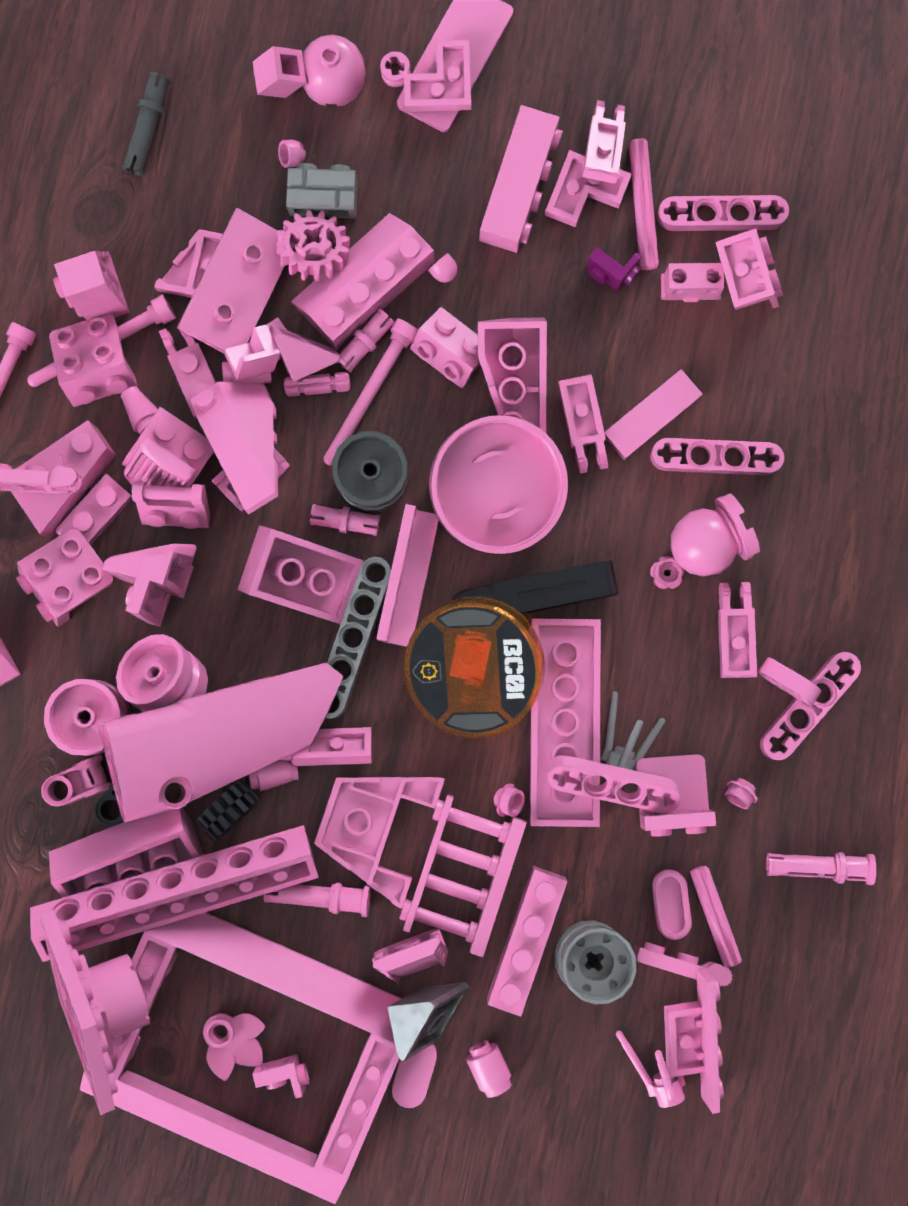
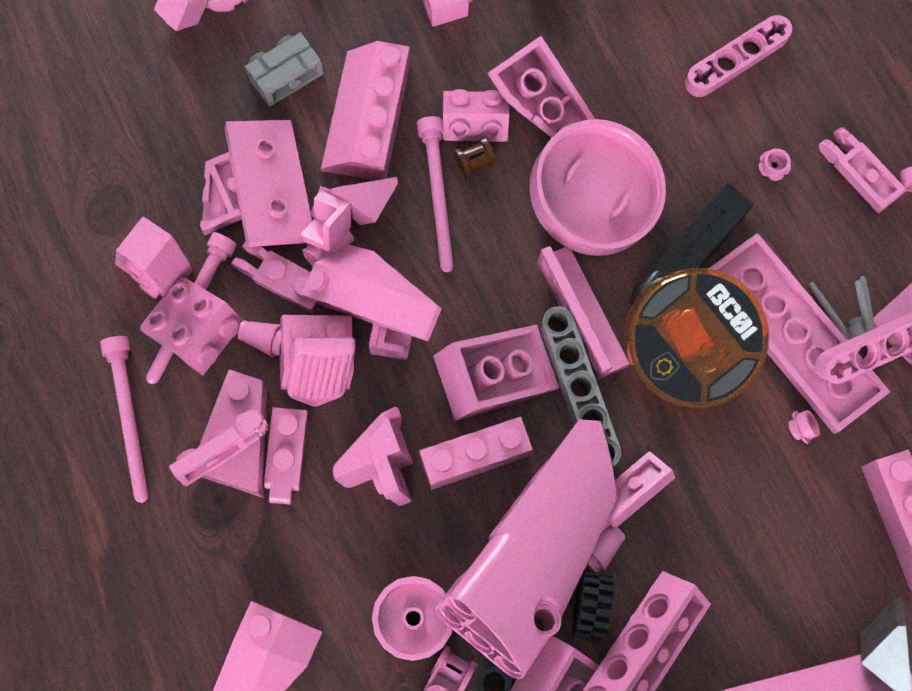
camera: 45 degrees left, 10 degrees down
(63, 575) = (300, 517): bright pink bracket -> none
(150, 110) = (95, 102): dark grey pin -> none
(159, 673) = (449, 532): bright pink wheel -> none
(172, 505) = (350, 389): bright pink plate -> none
(231, 627) = (475, 453): none -> bright pink brick
(291, 153) = (235, 58): bright pink hinge -> none
(312, 245) = (309, 110): bright pink gear -> none
(317, 384) = (392, 215): bright pink axle -> none
(335, 897) = (733, 614): bright pink pin -> none
(344, 519) = (497, 303): bright pink pin -> none
(360, 822) = (704, 537): bright pink wing -> none
(365, 340) = (404, 155): bright pink pin -> none
(366, 451) = (497, 229): dark grey wheel -> none
(411, 955) = (833, 608): bright pink slope -> none
(431, 380) = (486, 157): none -> reddish brown bush
(444, 269) = (424, 62): bright pink hinge -> none
(496, 866) = (855, 517): bright pink fence -> none
(583, 419) = (621, 98): bright pink hinge -> none
(652, 414) = (666, 59): bright pink tile -> none
(710, 539) = (792, 107): bright pink tile -> none

